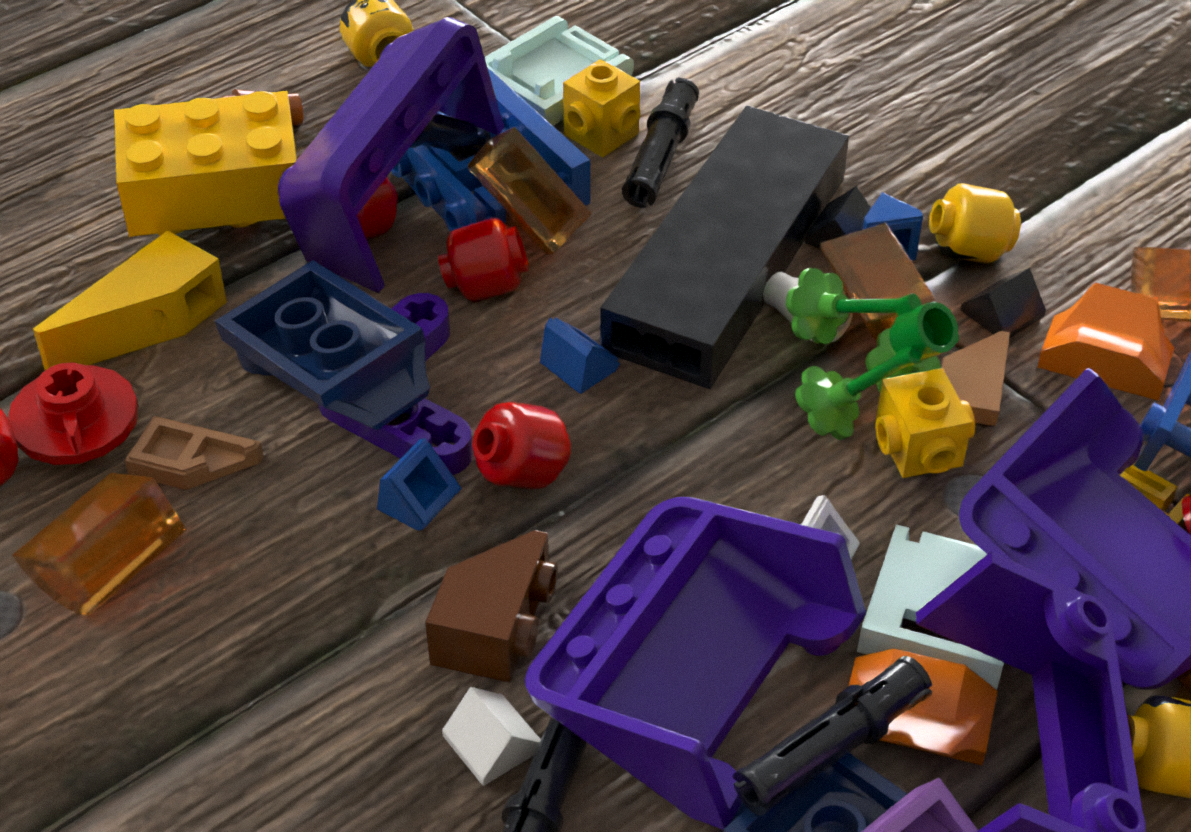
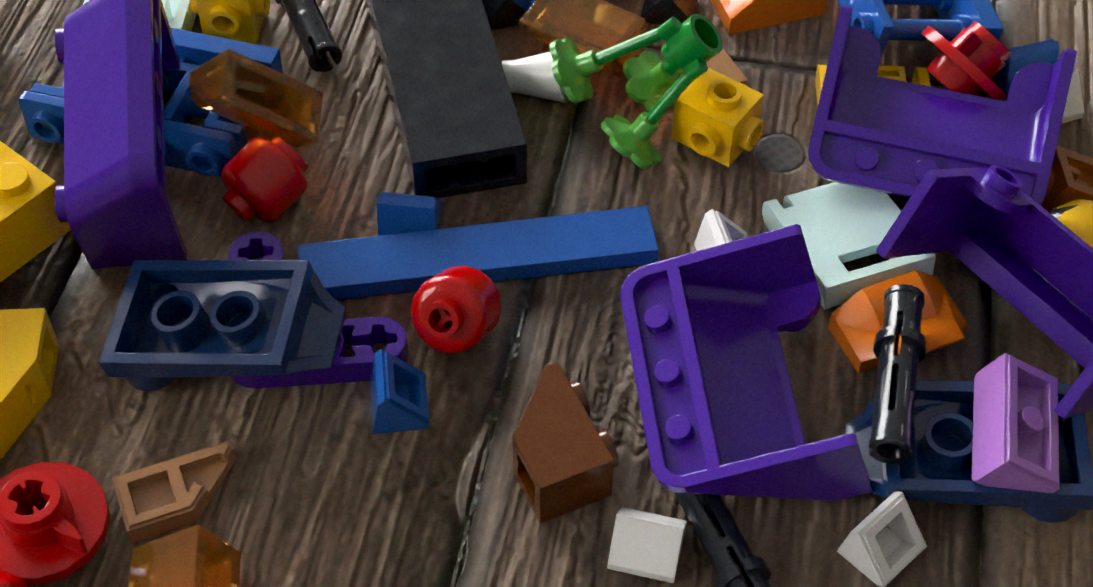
camera: 40 degrees left, 5 degrees up
(609, 422) = (497, 249): none -> blue tile

